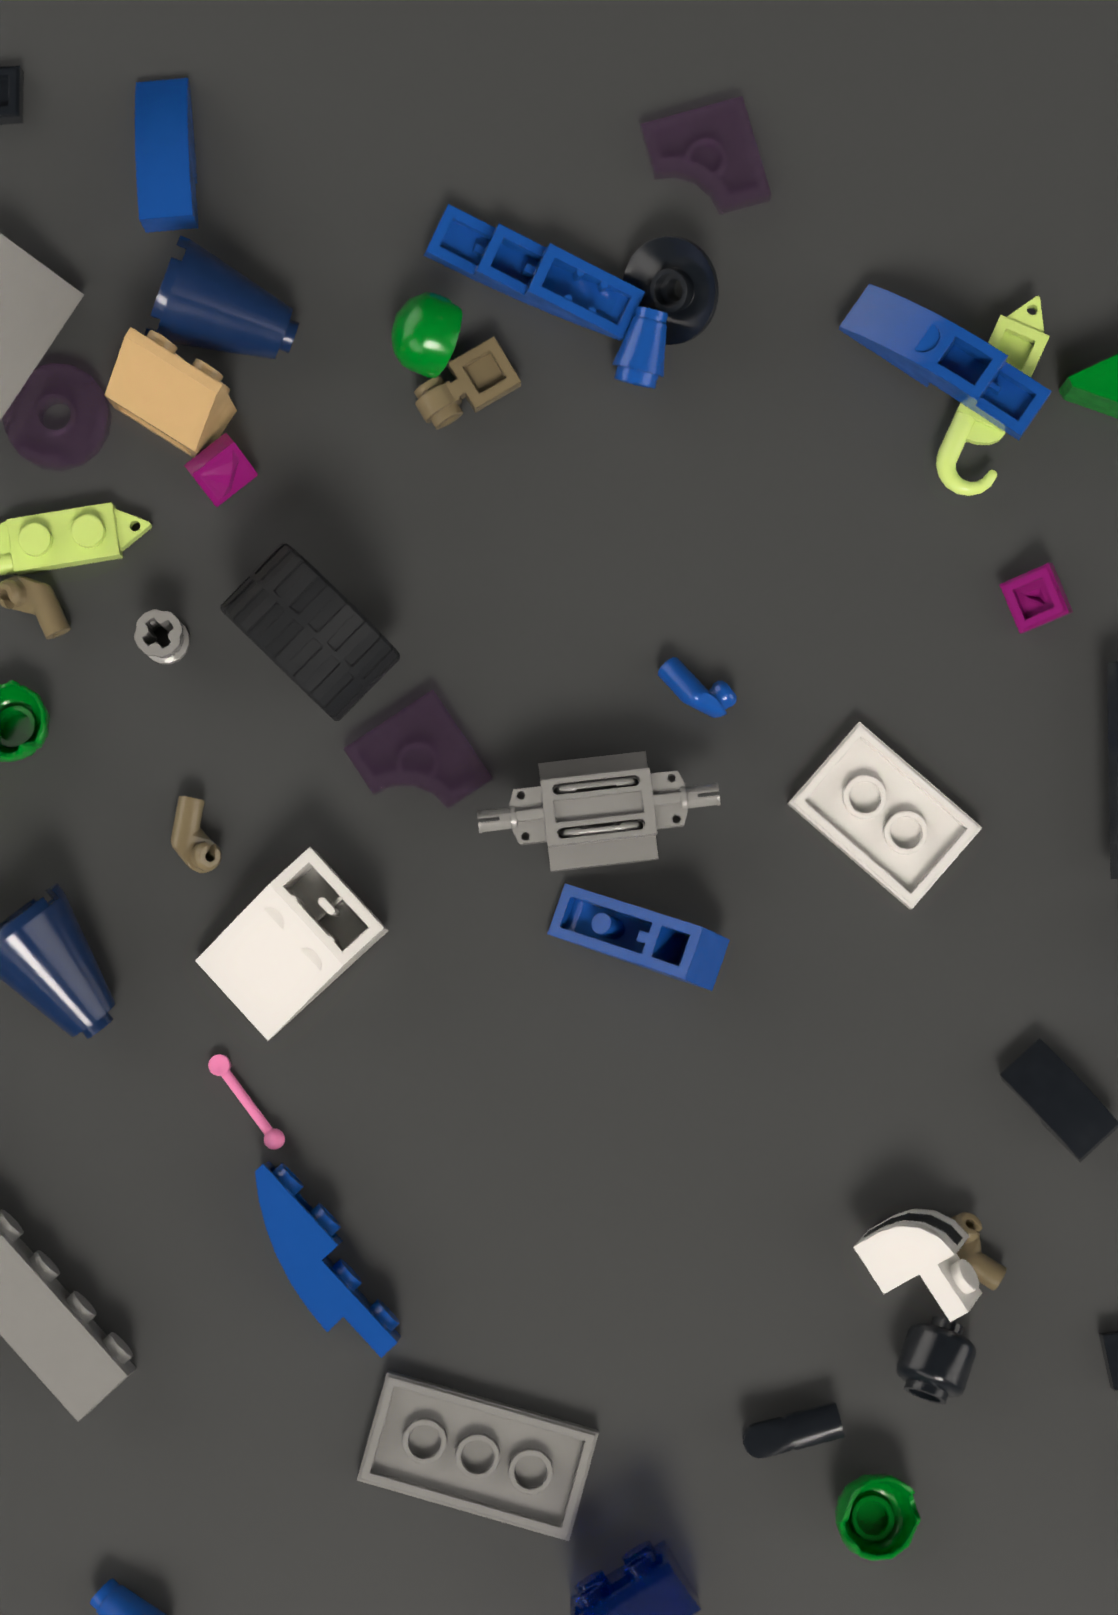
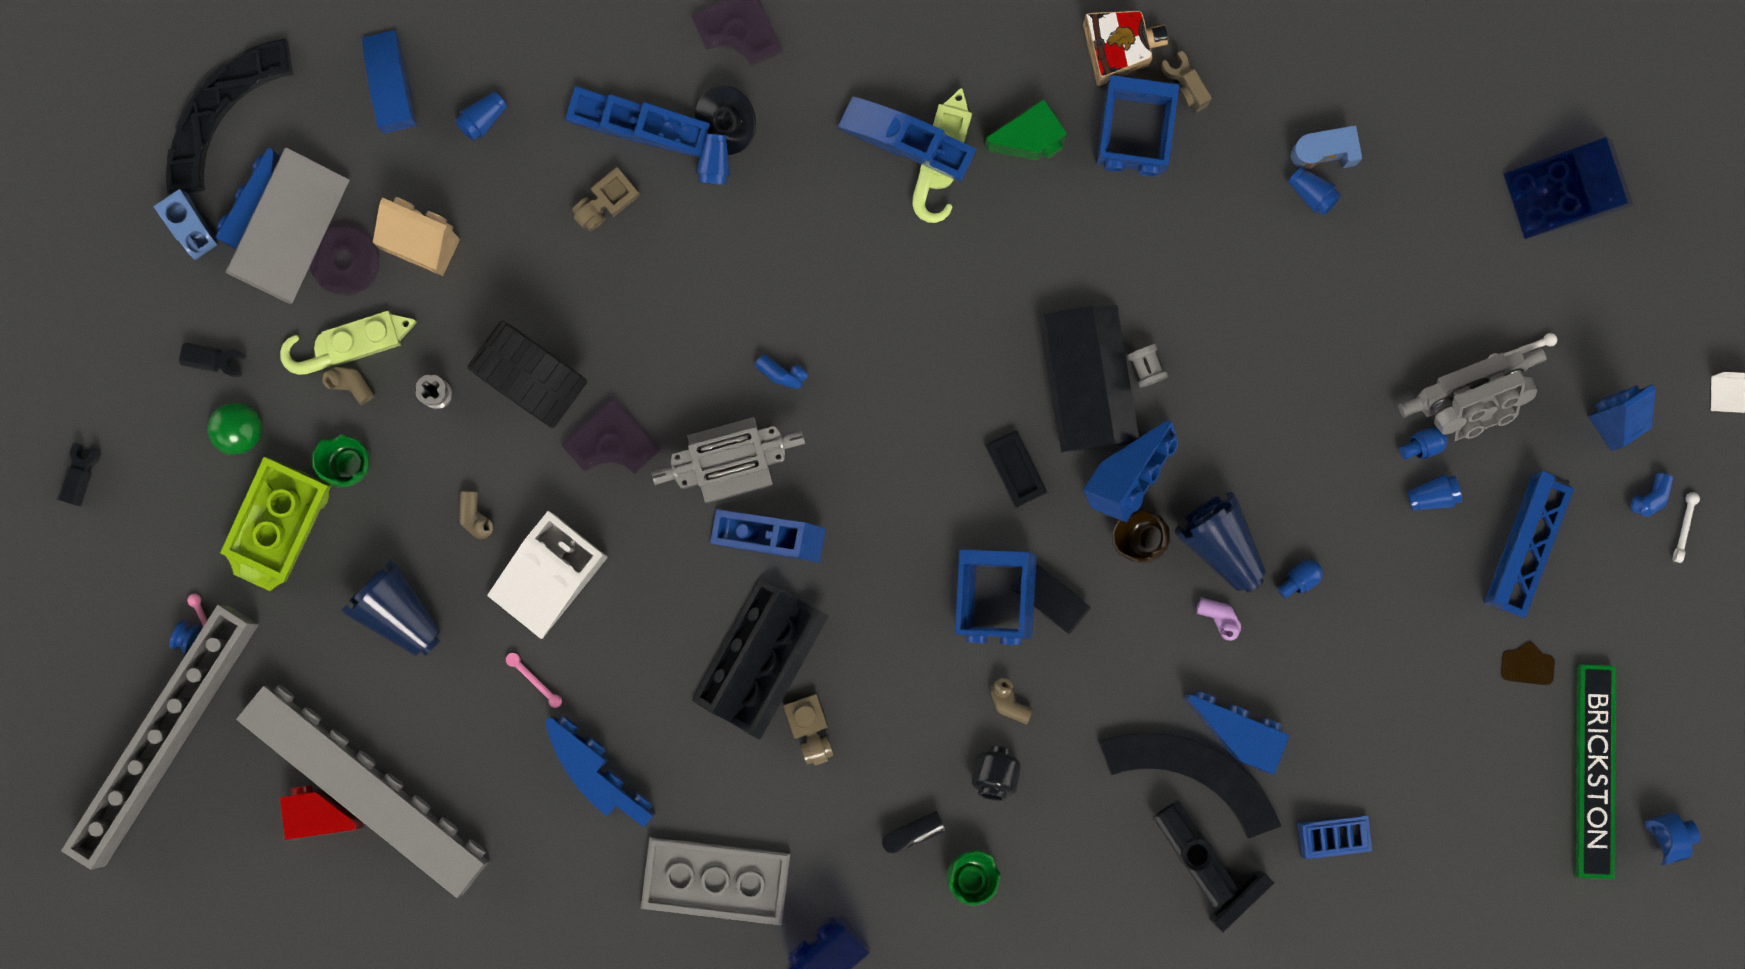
camera: 15 degrees left, 0 degrees up
(219, 308) = (437, 175): dark blue cone -> none
(221, 469) = (455, 279): magenta tile -> none
(296, 228) = (480, 116): none -> blue cone
(426, 333) = (573, 171): green hair -> none
(598, 1124) = (760, 658): none -> black slope
(655, 1228) = (805, 720): none -> dark tan plate
(885, 815) = (913, 434): white tile -> none
(926, 1246) = (977, 702): white brick -> none
(942, 1141) = (966, 595): none -> blue window
(1034, 893) = (1016, 469): none -> black tile
(1036, 598) = (988, 281): magenta tile -> none

